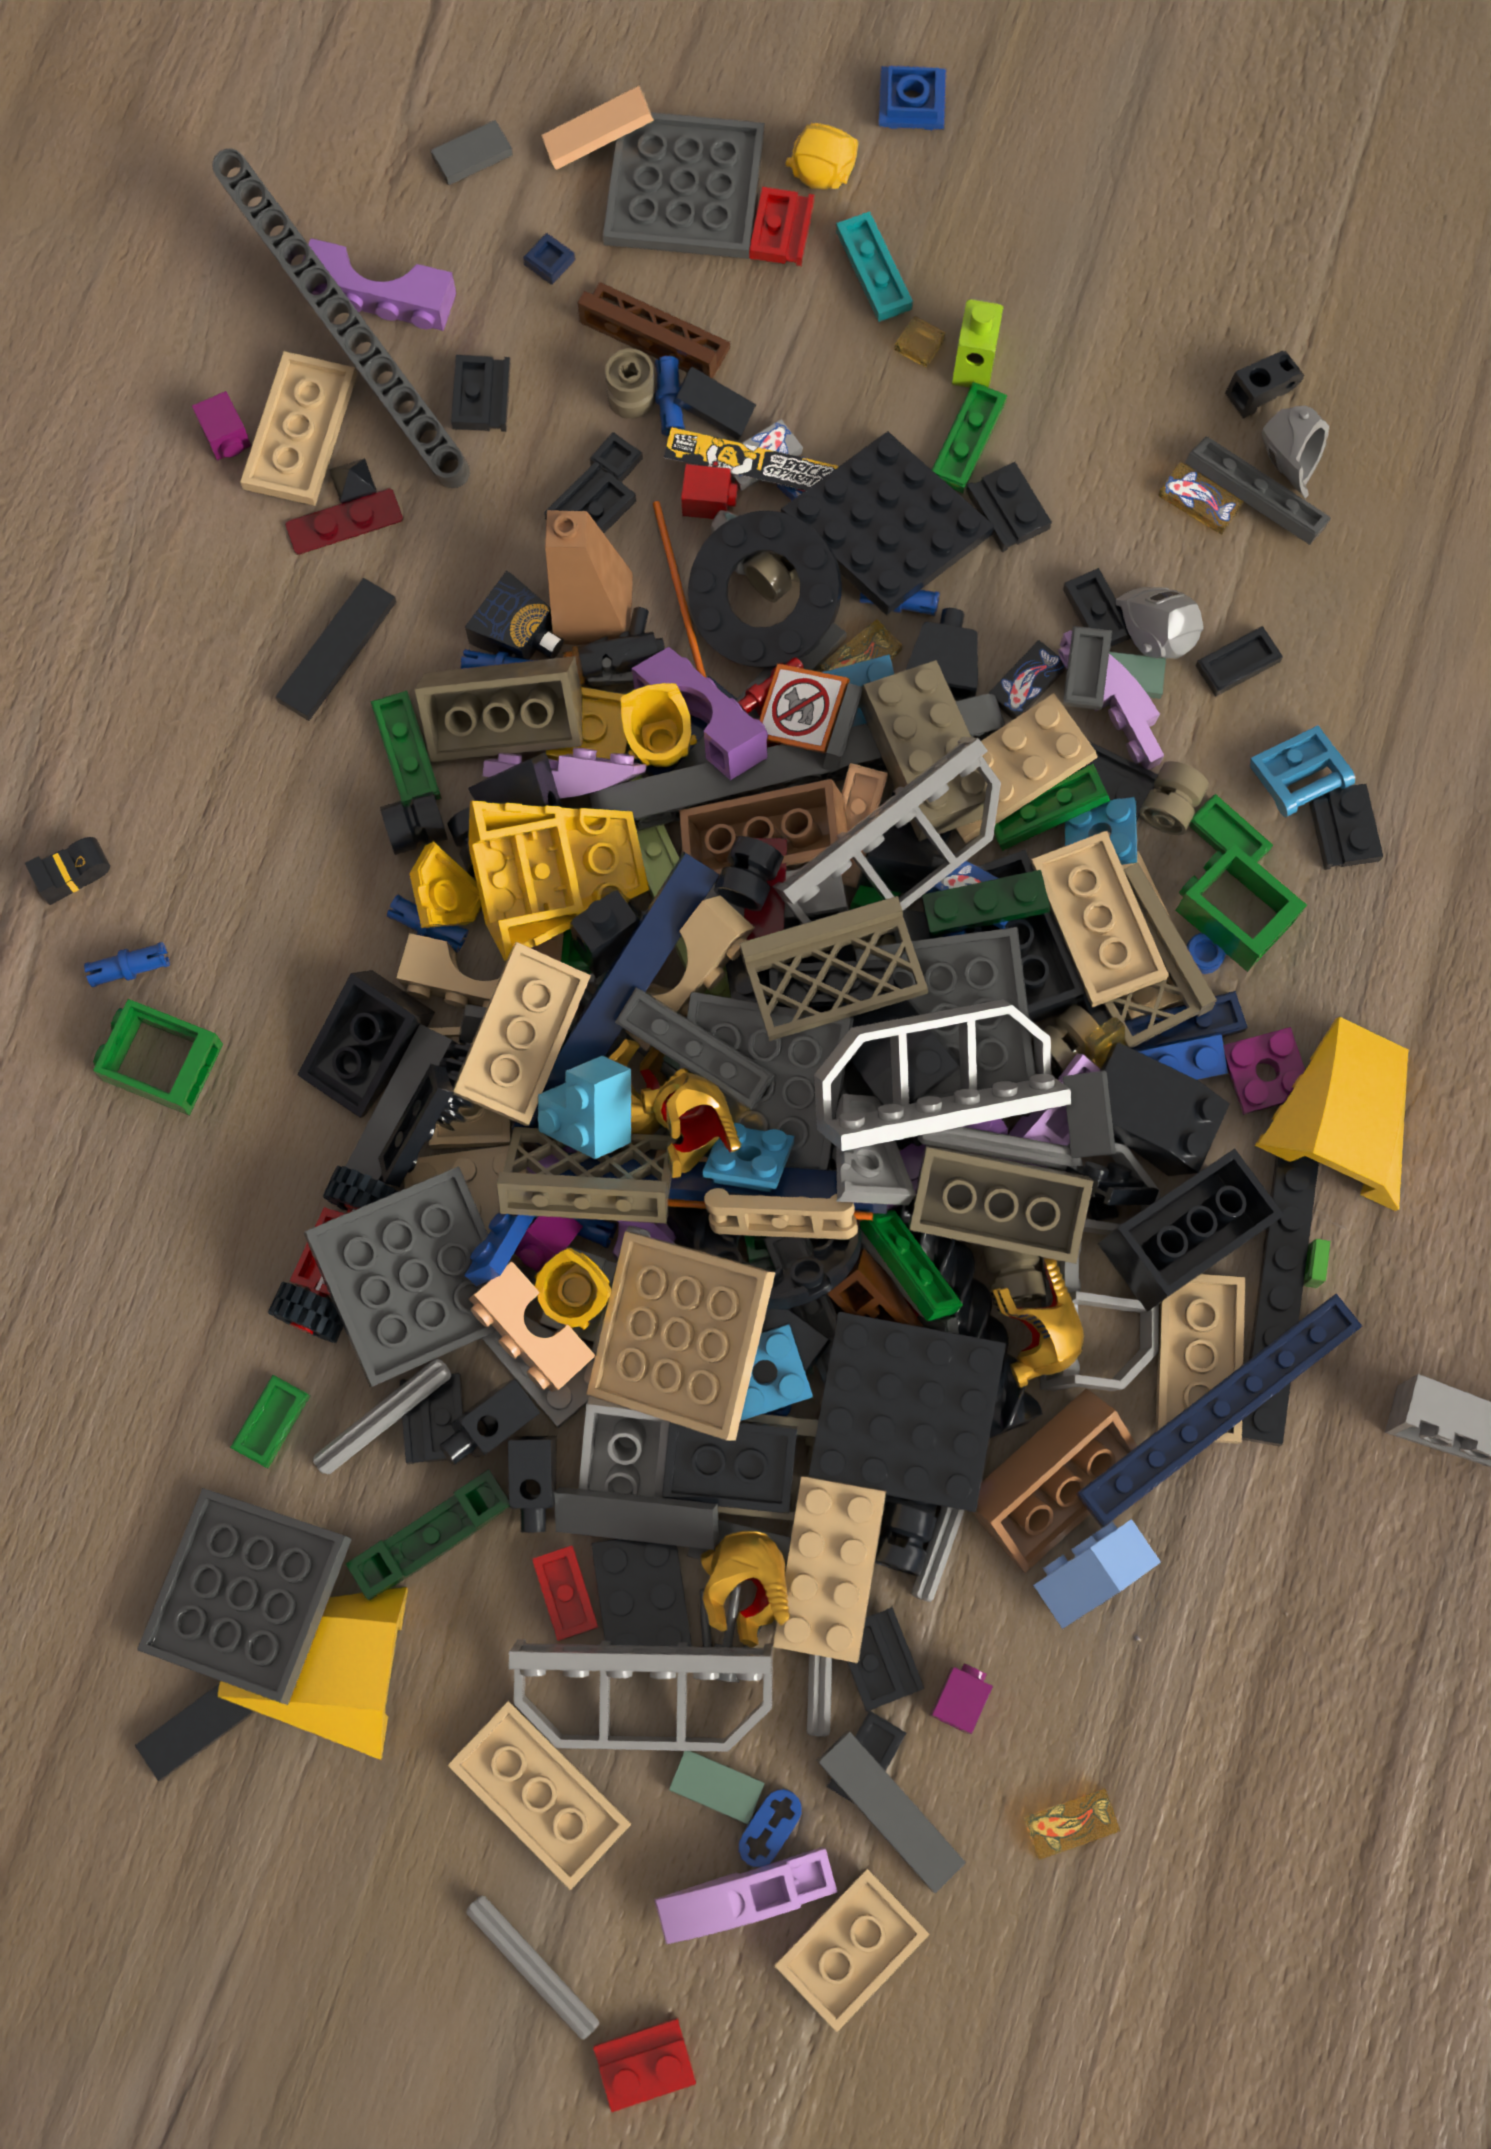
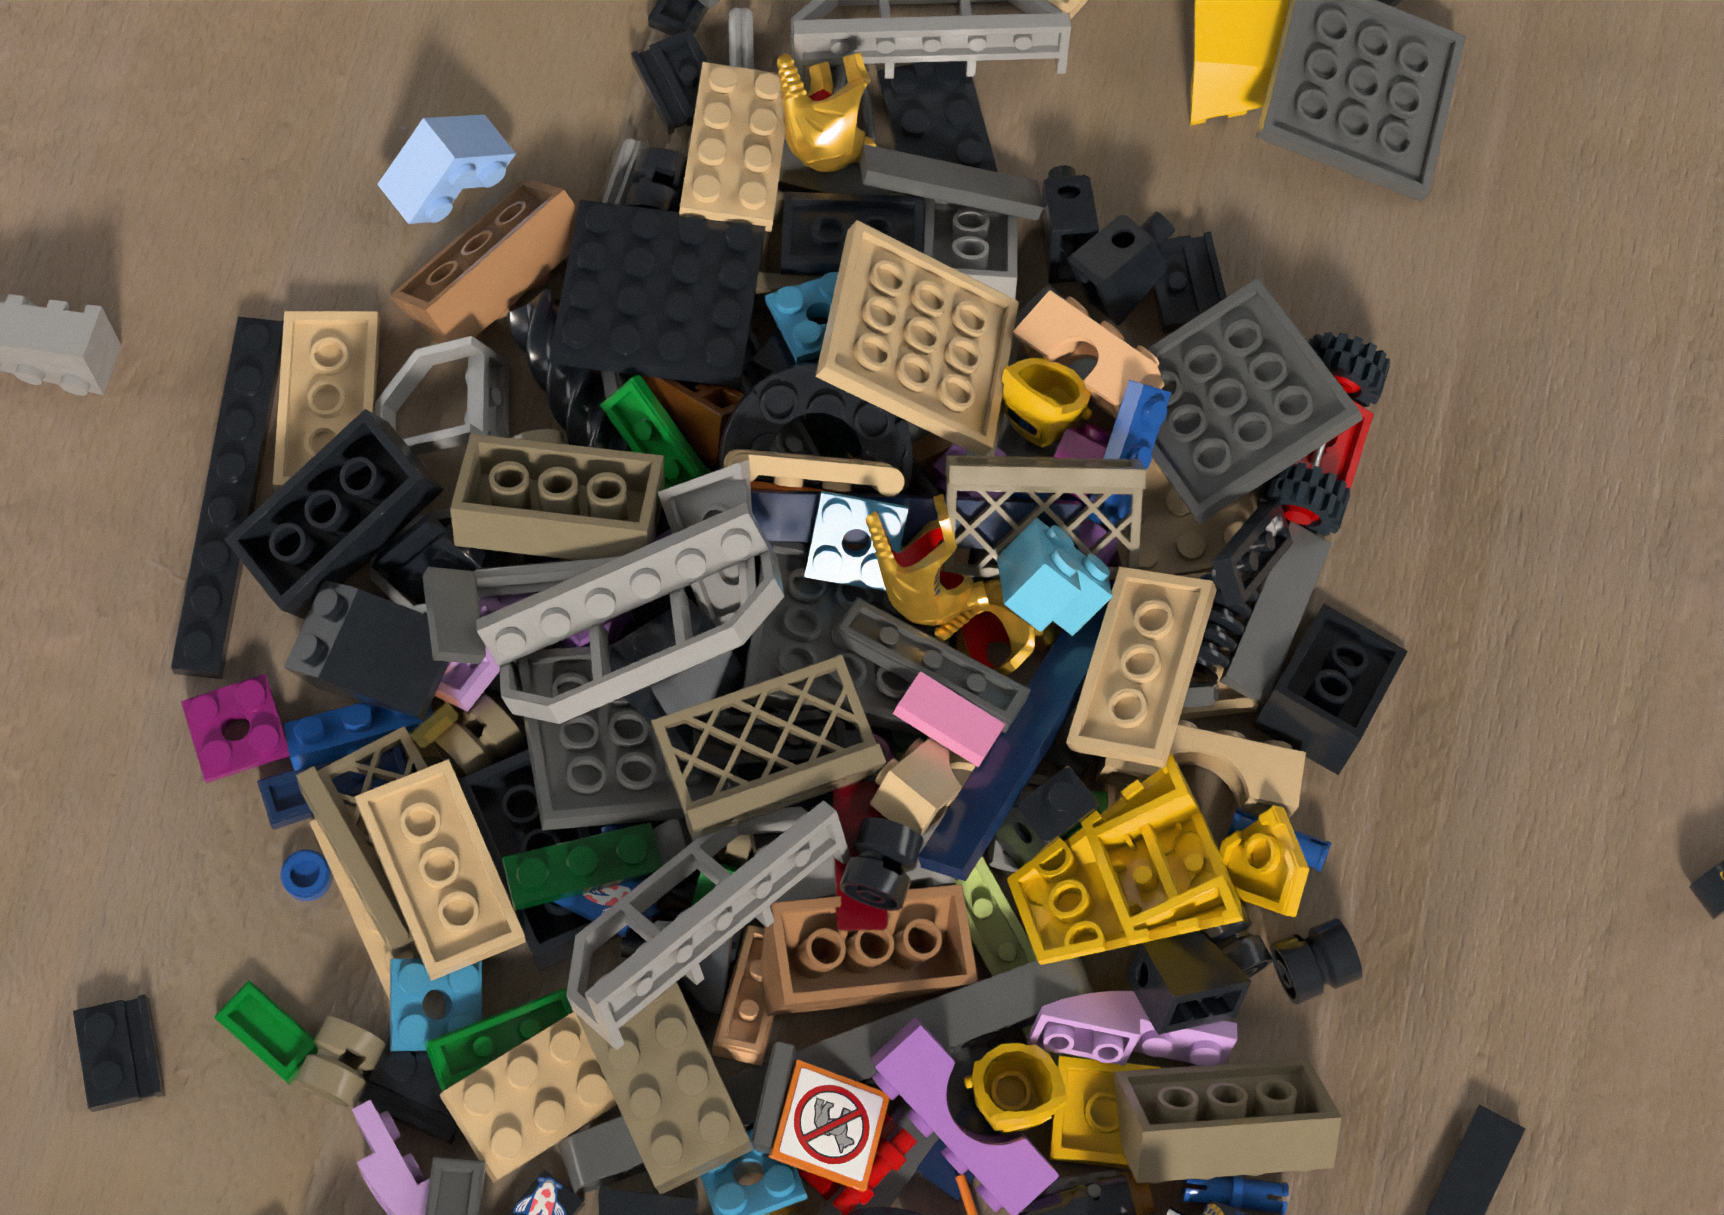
camera: 175 degrees right, 5 degrees down
(127, 964) = (1640, 763): blue pin -> none
(192, 1074) = (1586, 613): green window -> none
(270, 1421) = (1367, 273): green tile -> none
(382, 1416) = (1244, 271): light grey axle -> none
(404, 746) = (1344, 1072): green tile -> none
(429, 1536) = (1178, 165): dark green slope -> none
(565, 1593) = (1020, 122): red plate -> none
(684, 993) = (949, 719): none -> bright pink tile
(962, 1698) = (591, 47): magenta brick -> none
(1054, 1329) = (494, 378): pearl gold piece -> none
(1218, 1410) = (305, 338): dark blue tile -> none
(1220, 928) = (221, 895): green window -> none
(1297, 760) = (179, 1130): dark azure plate -> none
(1316, 1263) = (187, 507): bright green tile -> none
(1348, 1111) = (141, 677): yellow wedge -> none

